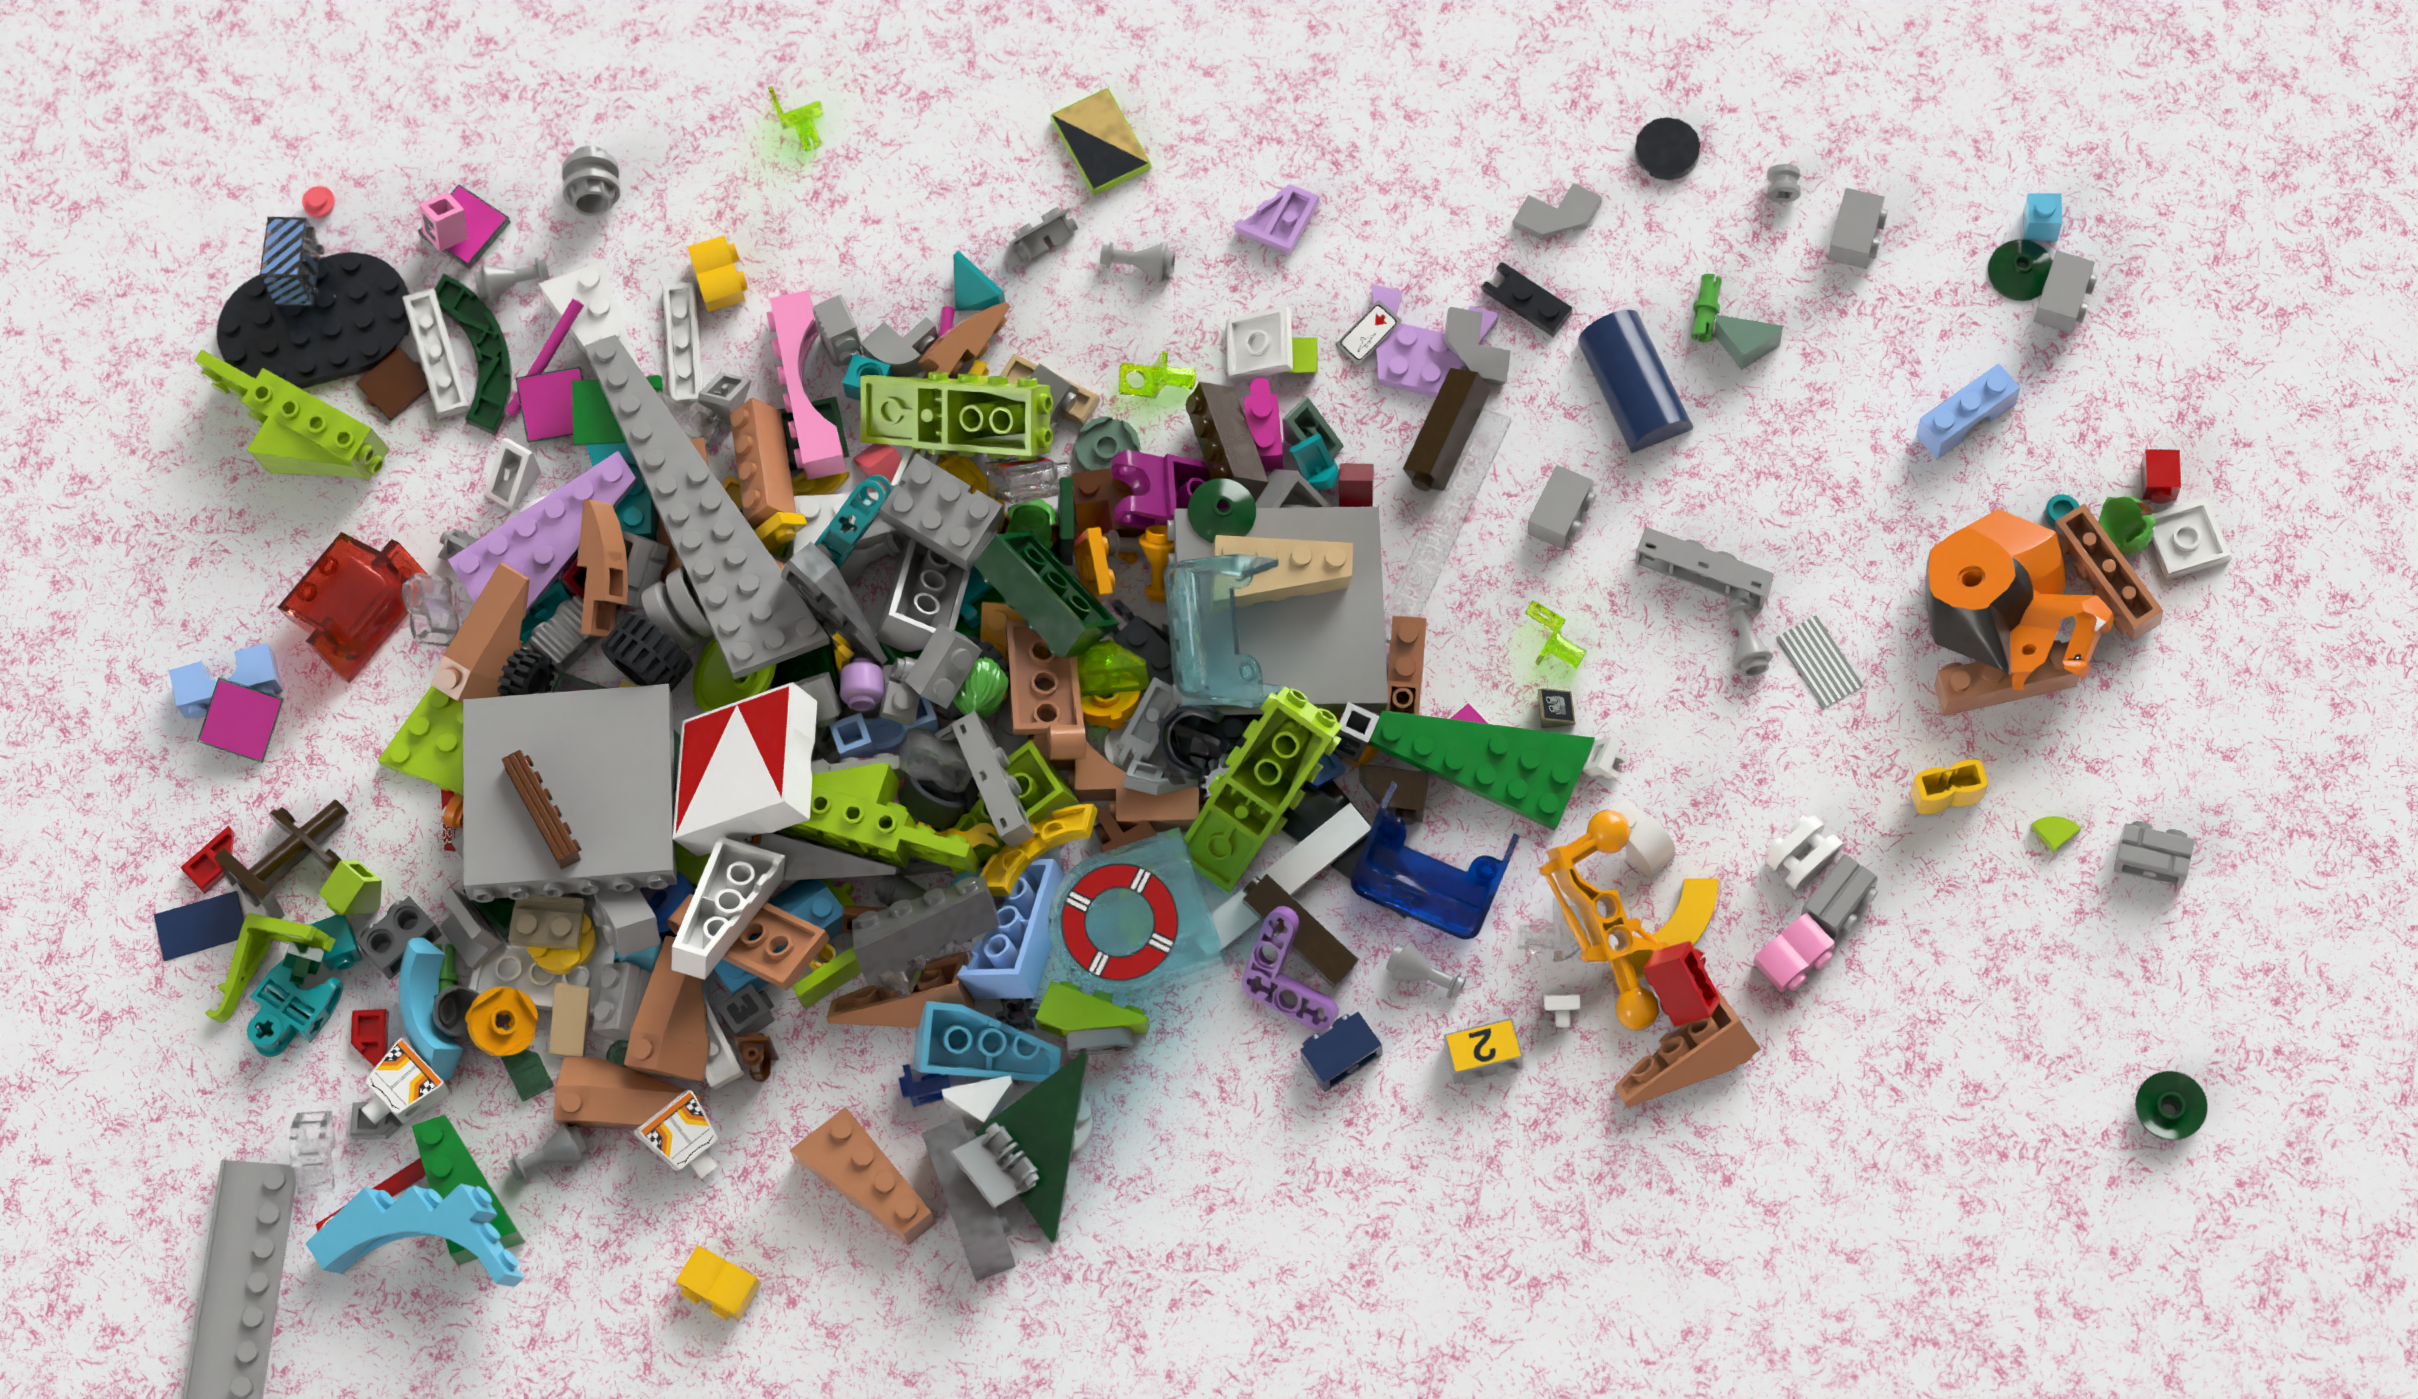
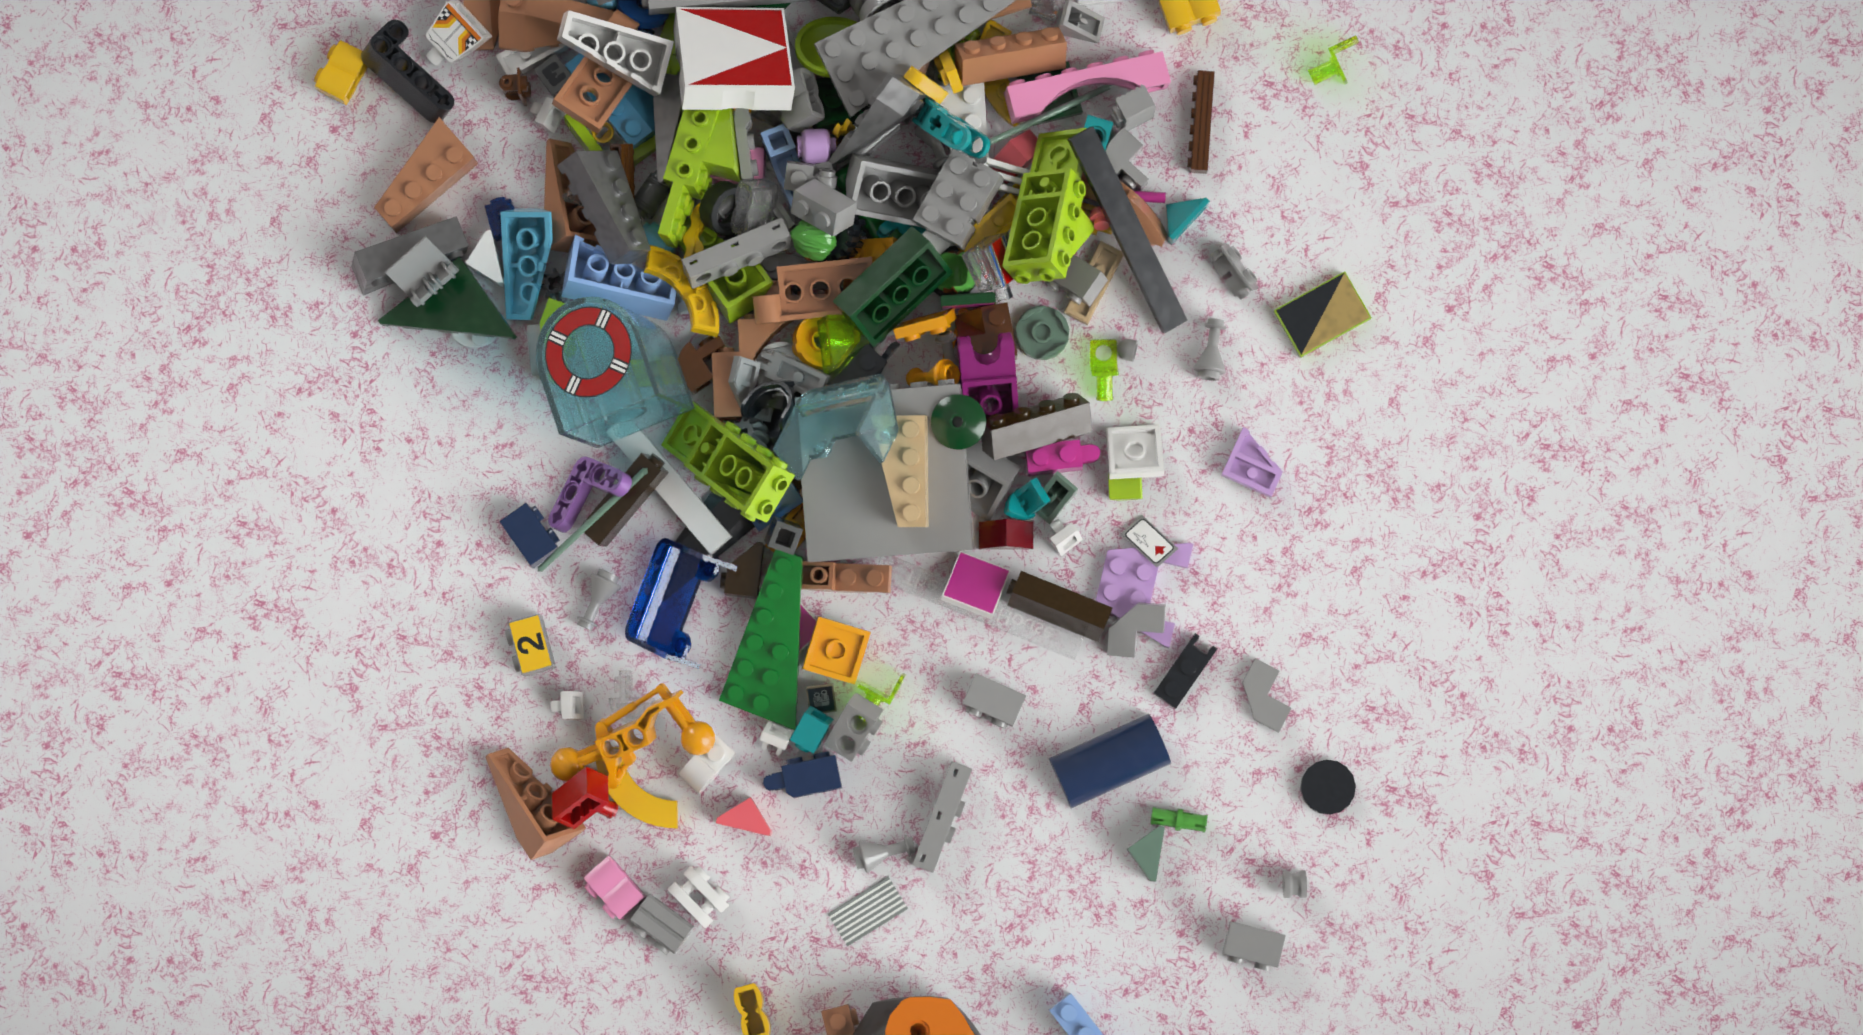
camera: 85 degrees right, 15 degrees up
(727, 1199) = (404, 74): none -> black beam
(792, 547) = (925, 84): none -> yellow beam
(793, 1024) = (547, 115): none -> white tile
(835, 421) = (1049, 114): none -> sand green axle
(858, 265) = (1202, 122): none -> reddish brown piece
(972, 364) = (1098, 219): none -> coral plate
(988, 335) = (1127, 229): none -> black tile
(1133, 351) = (1127, 349): none -> light grey hinge
(1333, 973) = (587, 524): none -> sand green axle
(1360, 425) = (1064, 537): none -> white tile
(1418, 524) = (975, 585): none -> dark pink tile
(1496, 685) = (836, 650): none -> light orange plate
(1590, 667) = (852, 726): none -> light grey brick
(1596, 714) = (811, 730): none -> teal brick
(1654, 723) = (806, 777): none -> dark blue hinge
(1703, 794) = (745, 817): none -> coral slope

